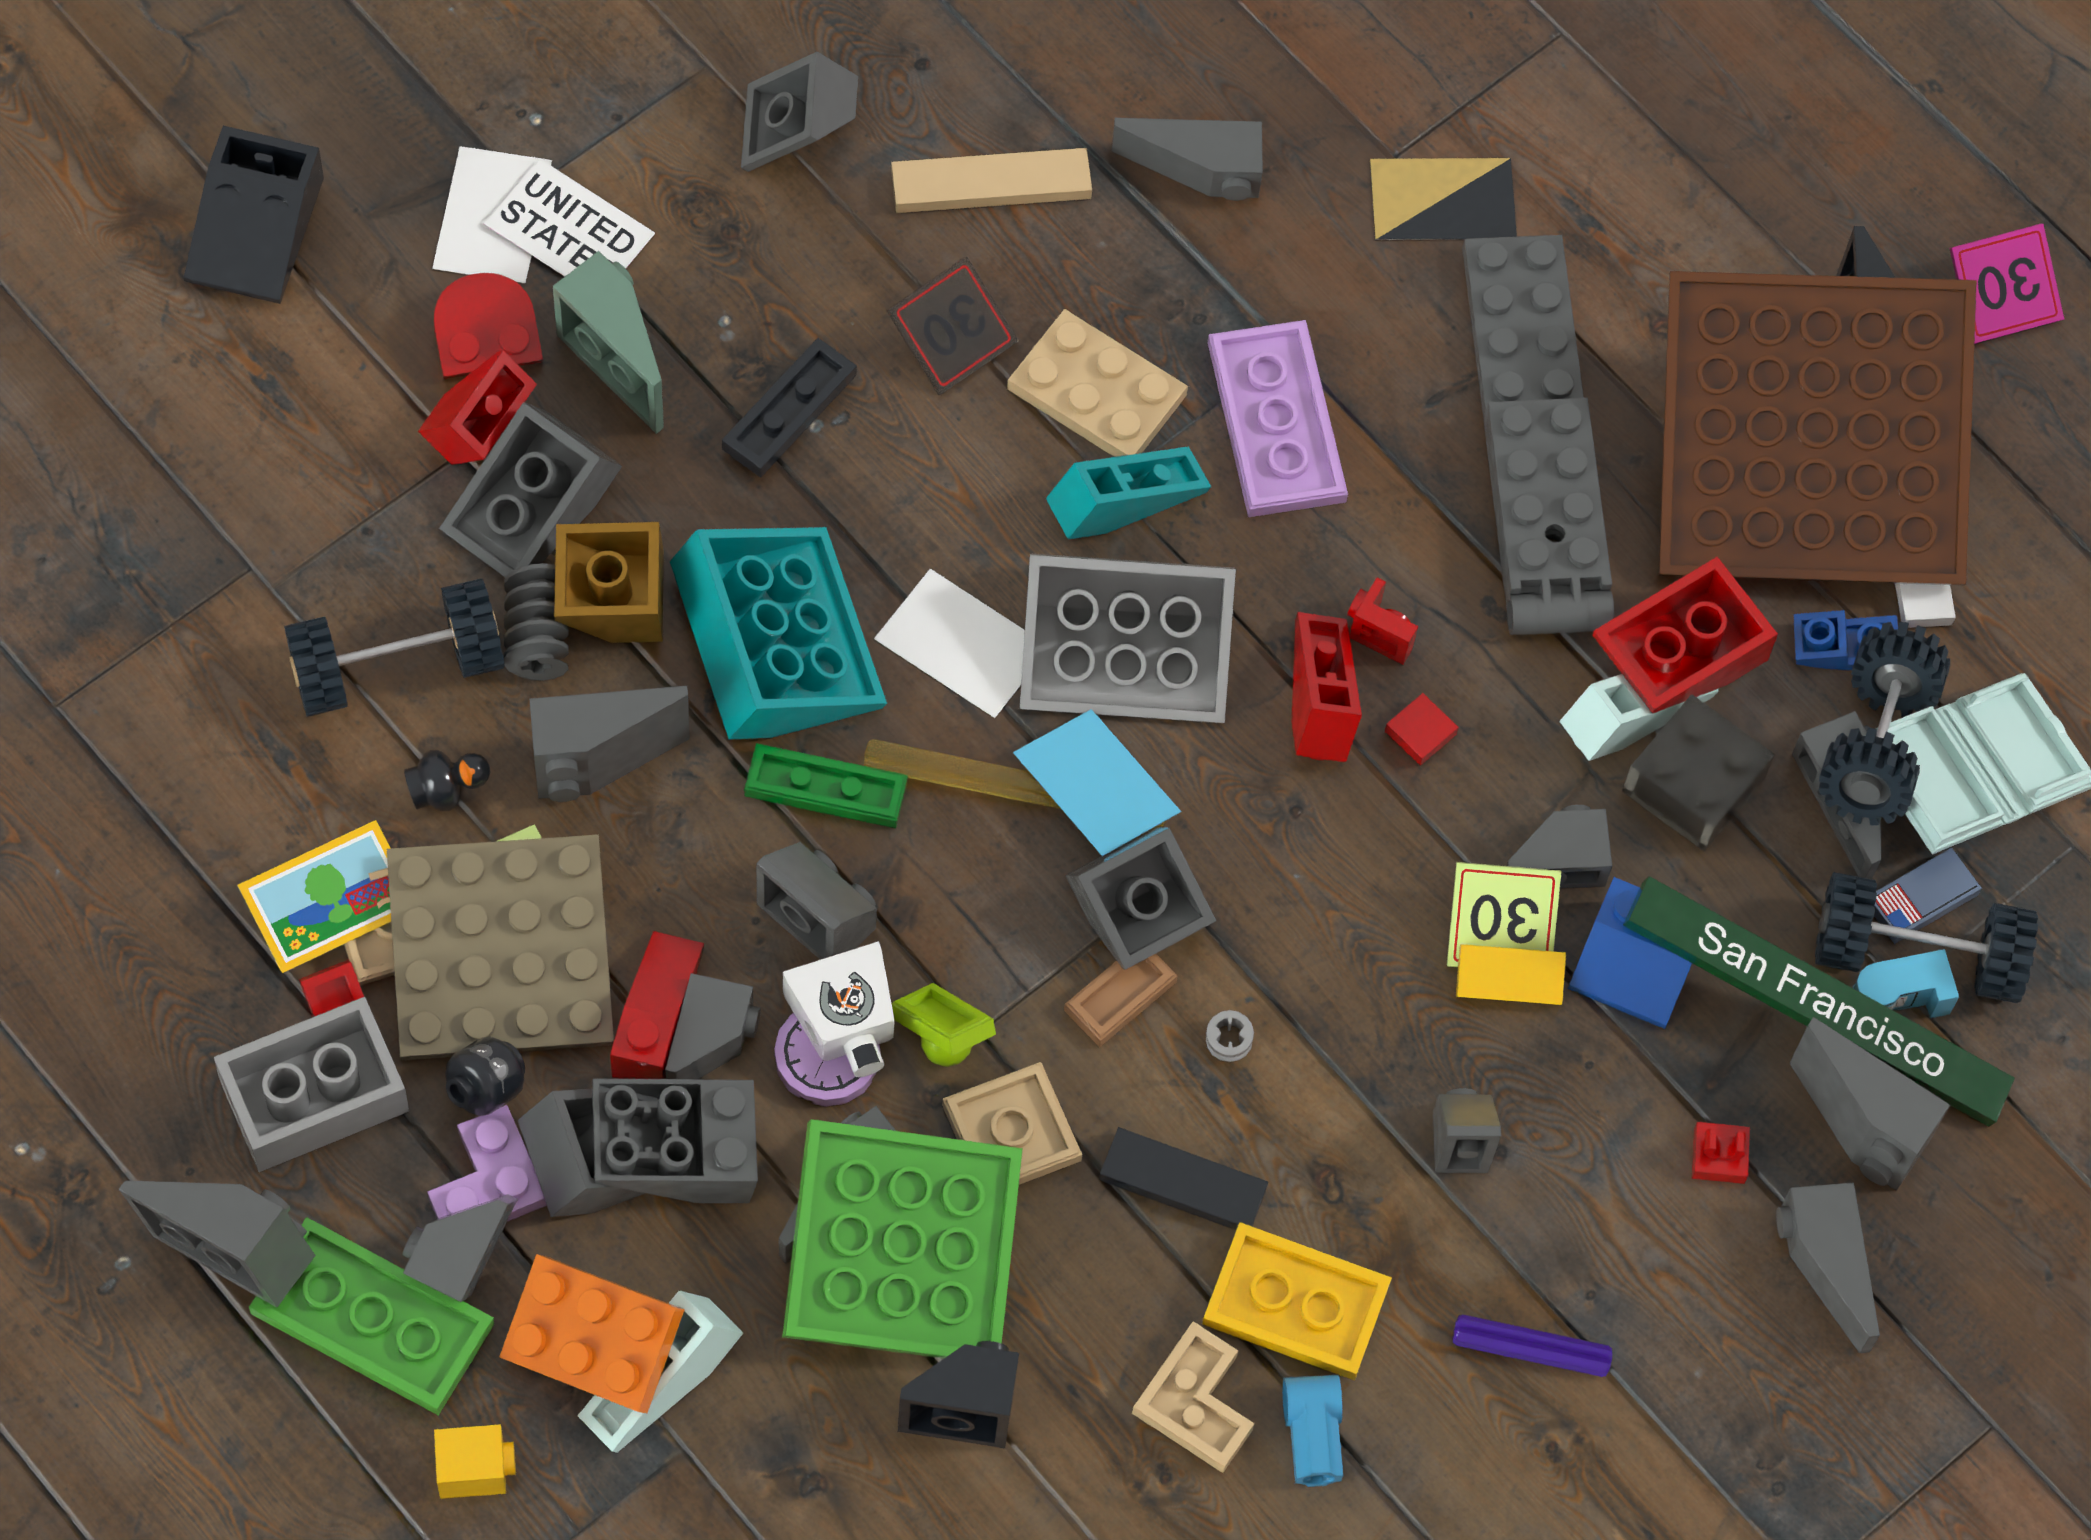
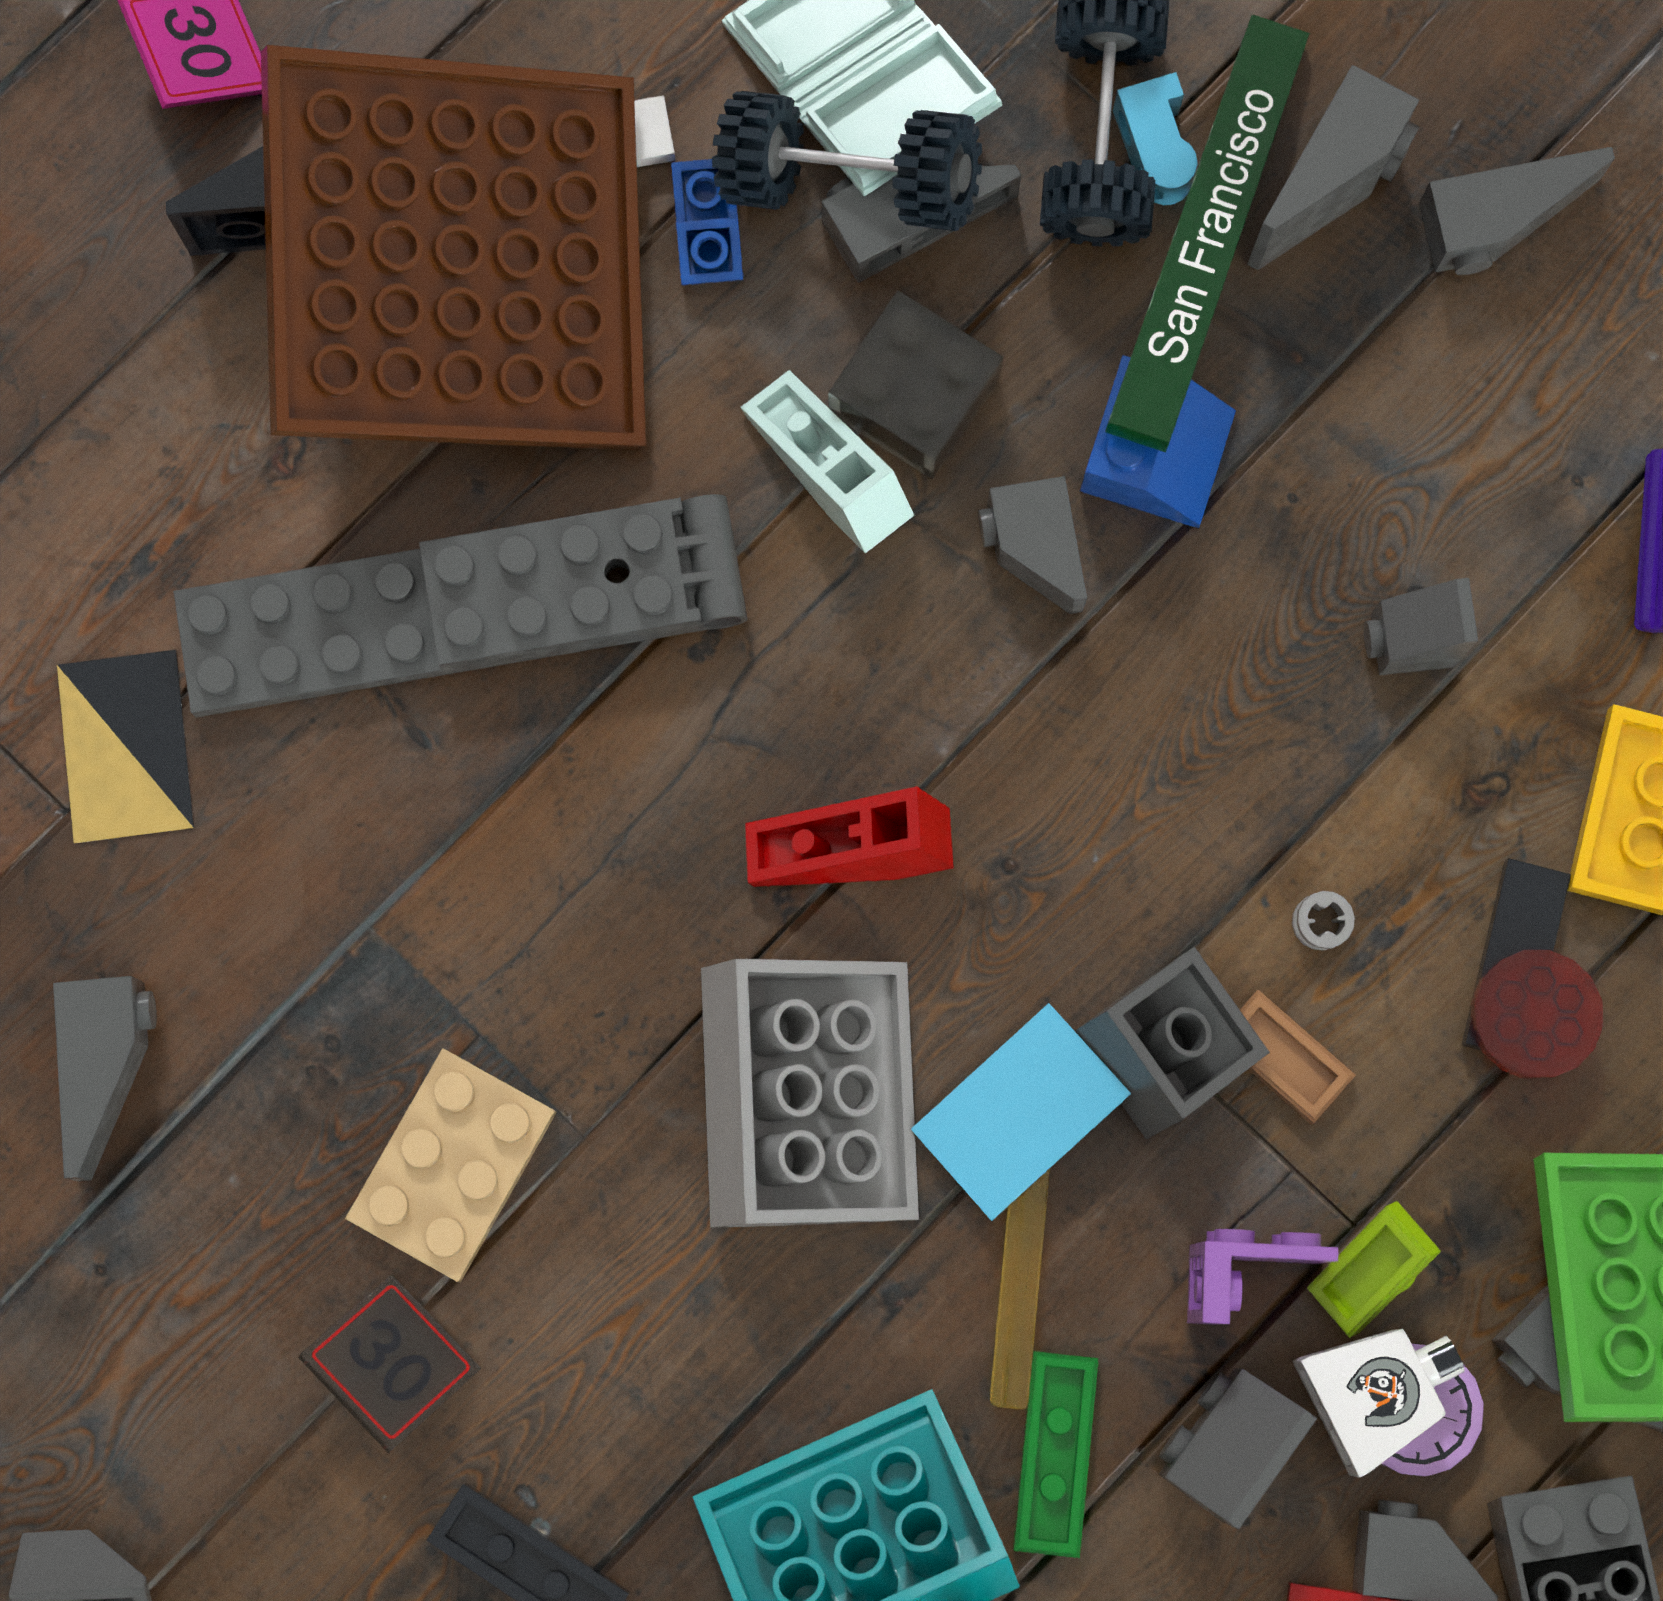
camera: 90 degrees left, 15 degrees up
(950, 895) = (1217, 1289): none -> medium lavender bracket
(958, 642) = (830, 1308): white sticker -> none
(991, 180) = (155, 1335): tan tile -> none
(1017, 1113) = (1480, 1170): tan plate -> none
(1124, 489) = (604, 1111): teal slope -> none
(1136, 1178) = (1537, 1014): none -> clear red tile
(1277, 418) = (470, 932): lavender tile -> none
(1381, 629) = (764, 771): red bracket -> none
(1421, 729) = (886, 720): red tile -> none
(1503, 908) = (1136, 603): yellowish green piece -> none
(1510, 974) = (1202, 592): yellow tile -> none
(1688, 638) = (748, 404): red slope -> none
(1720, 1152) = (1387, 341): red tile -> none
(1926, 893) = (1033, 123): sand blue tile -> none

